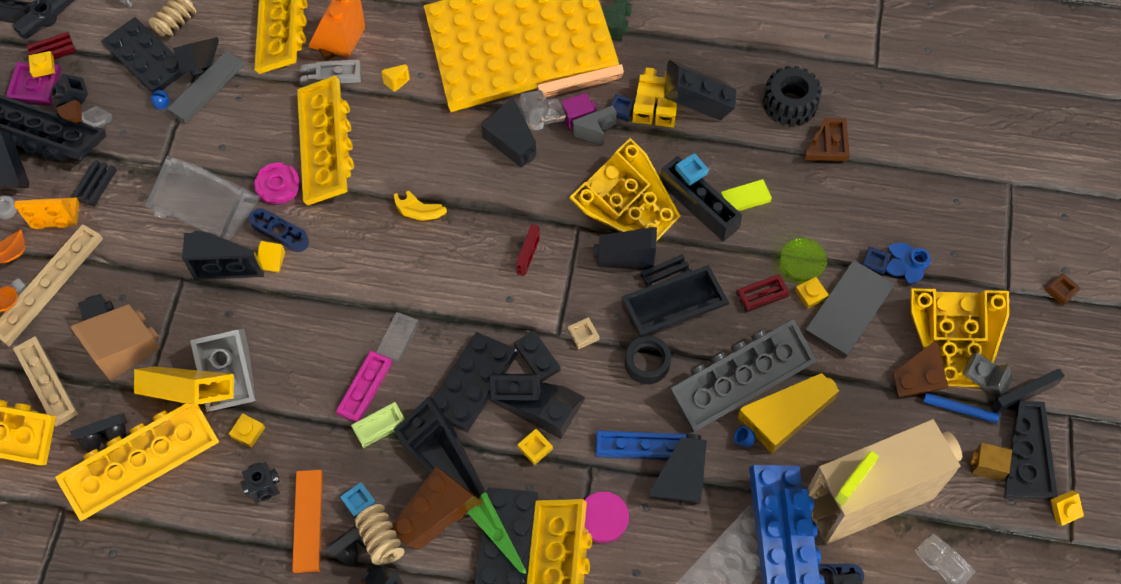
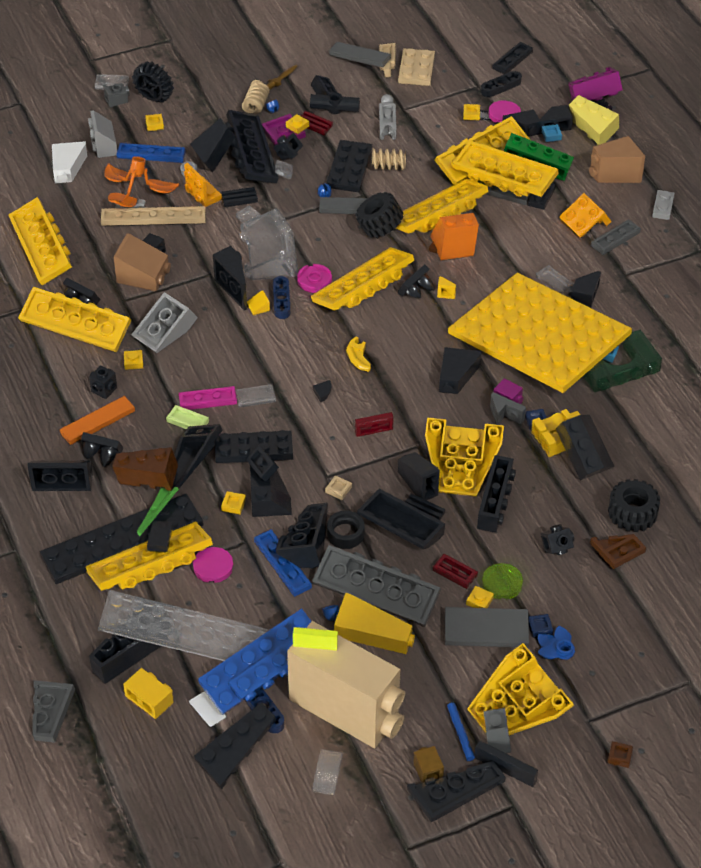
camera: 55 degrees right, 15 degrees down
(45, 380) = (91, 252): tan plate -> none
(71, 111) = (275, 154): reddish brown tile -> none
(130, 191) = (247, 214): none -> clear tile
(183, 385) = (135, 308): yellow slope -> none
(196, 55) = (368, 185): black slope -> none
(237, 66) = (379, 215): none -> black tyre
(345, 70) = (421, 256): light grey hinge -> none
(357, 499) = (128, 435): dark azure plate -> none
(362, 93) = (419, 277): none -> black tile
(378, 535) = (106, 446): tan piece -> none
(441, 269) = (322, 390): none -> black tile
(537, 356) = (300, 472): black plate -> none
(540, 111) = (482, 370): clear brick -> none
(541, 550) = (160, 536): none -> black tile
(581, 81) = (533, 383): light nougat tile -> none
(636, 407) = (306, 538): none -> black wedge
(683, 472) = (275, 585): black slope -> none
(692, 169) = (505, 468): dark azure plate -> none
(748, 195) = (526, 523): neon yellow tile -> none
(791, 183) = (557, 540): none -> black brick
(921, 373) = (466, 690): reddish brown wing -> none
(1067, 507) = (428, 829): yellow plate -> none

